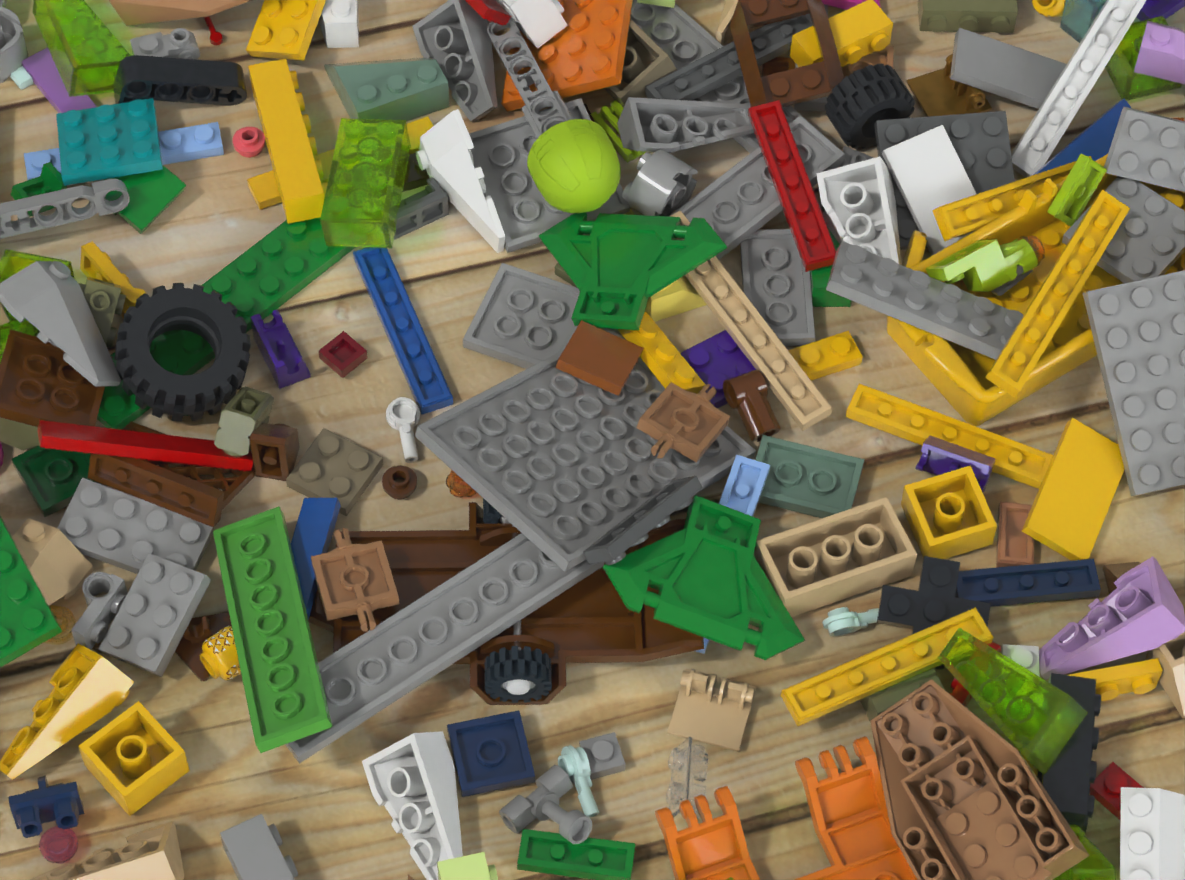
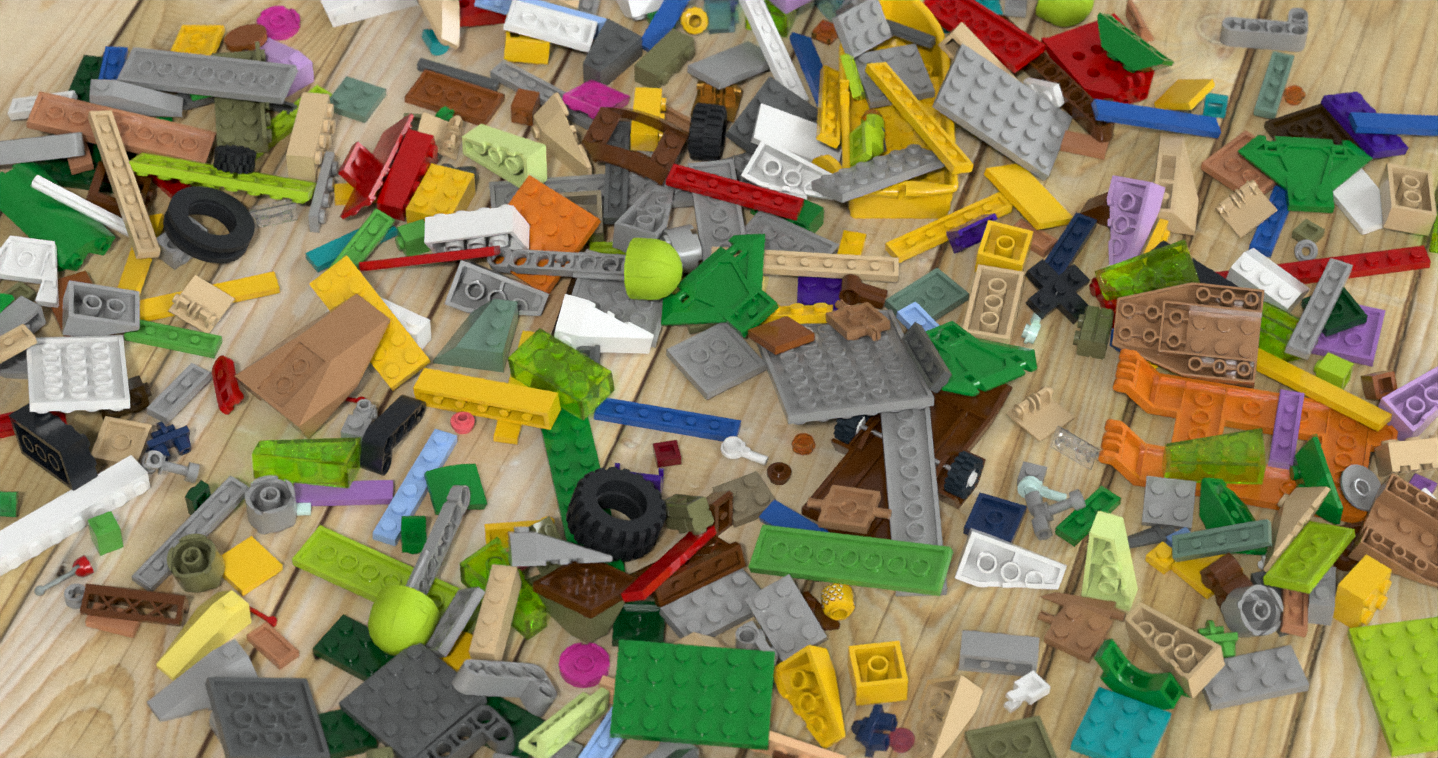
camera: 55 degrees left, 10 degrees down
(109, 141) = (411, 481): teal plate -> none
(878, 668) = (1081, 323): yellow tile -> none

